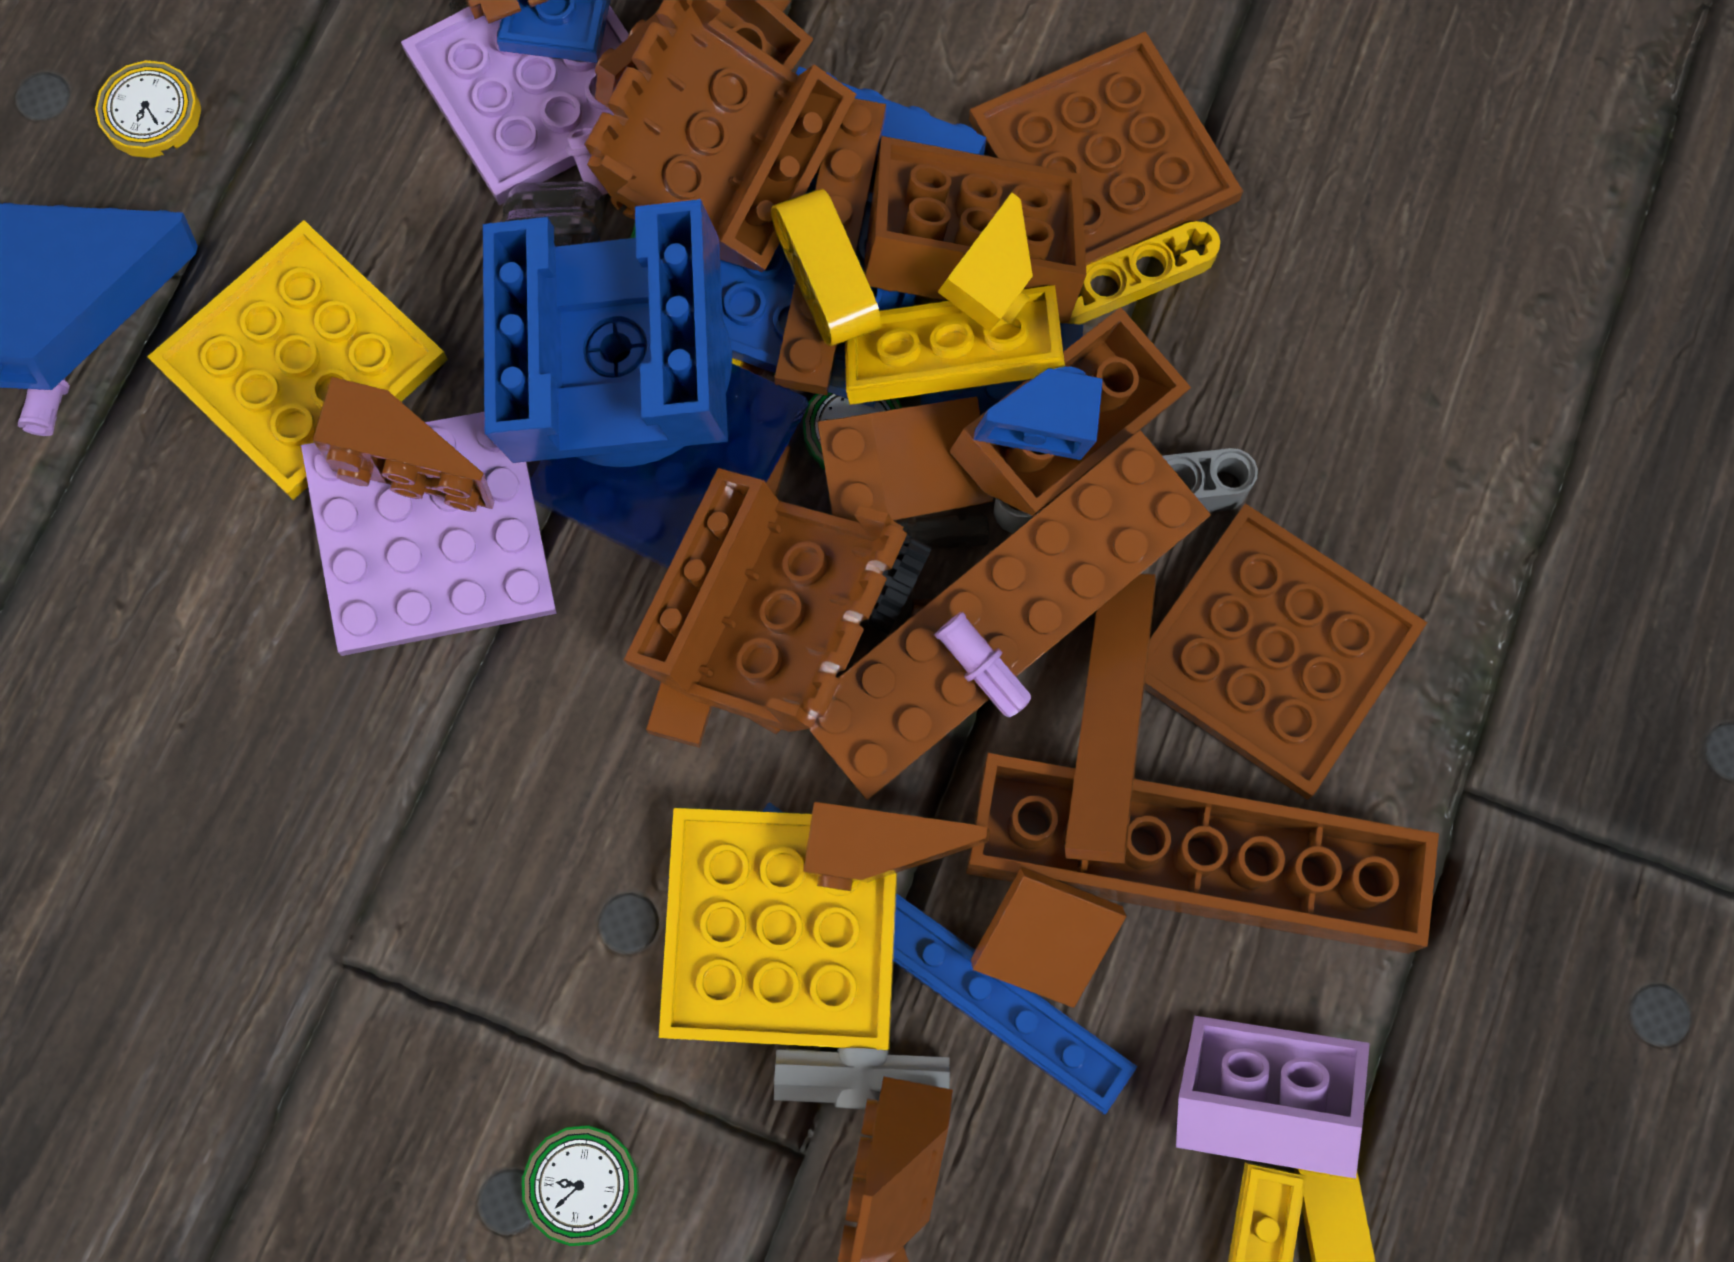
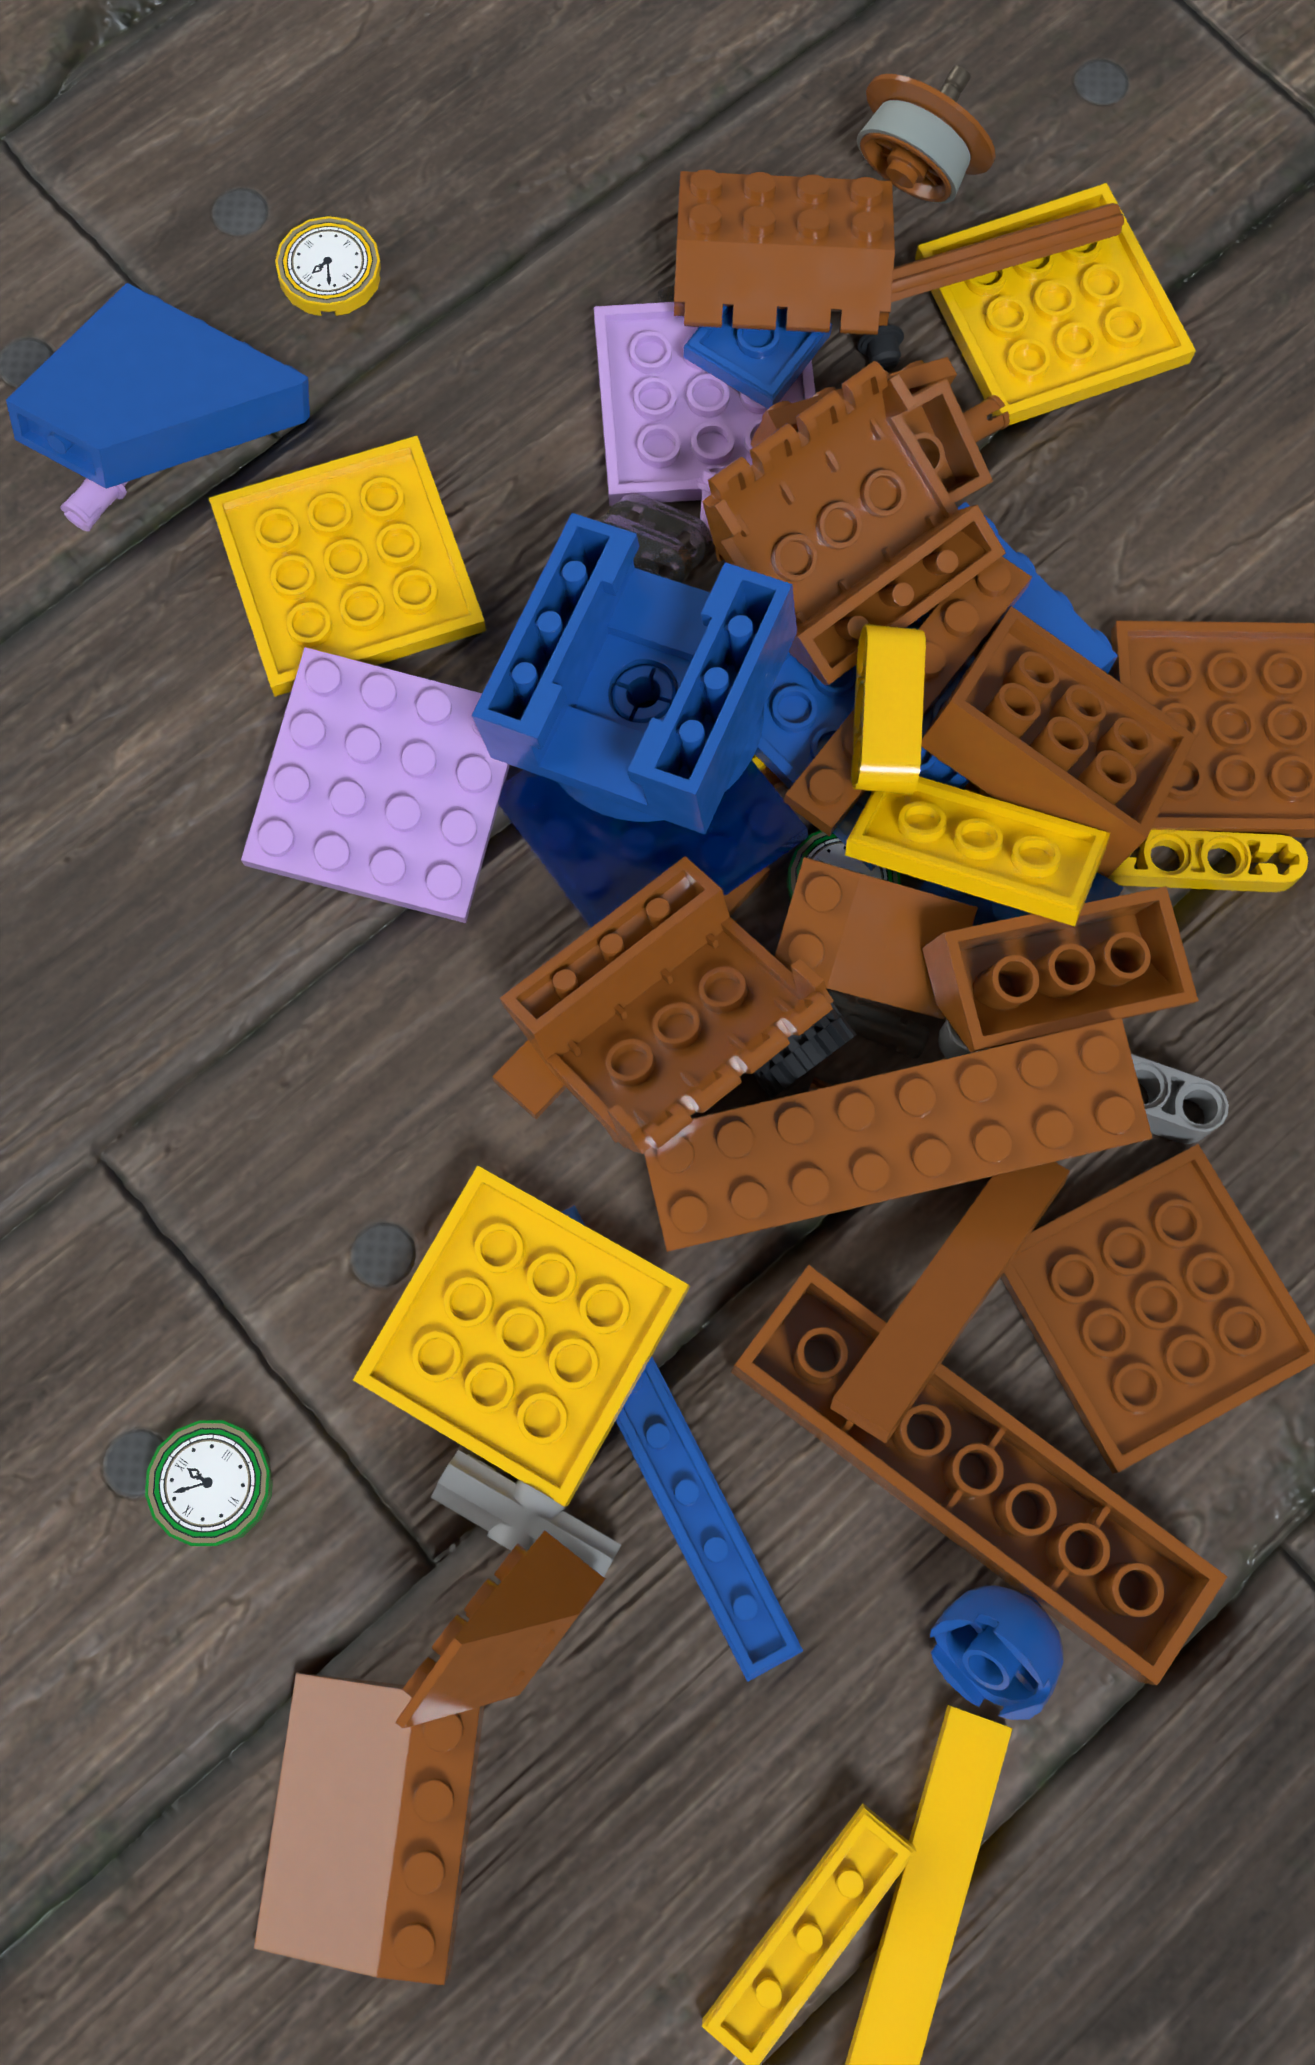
camera: 25 degrees right, 0 degrees up
(379, 439) = (372, 672): dark orange slope -> none
(872, 844) = (647, 1298): dark orange slope -> none
(983, 665) = (845, 1176): lavender axle -> none
(993, 270) = (1052, 788): yellow slope -> none
(1047, 415) = (1034, 958): blue slope -> none
(1048, 937) = (777, 1477): dark orange tile -> none
(1273, 1096) = (923, 1753): lavender slope -> none
(1292, 983) = (999, 1649): none -> blue cylinder

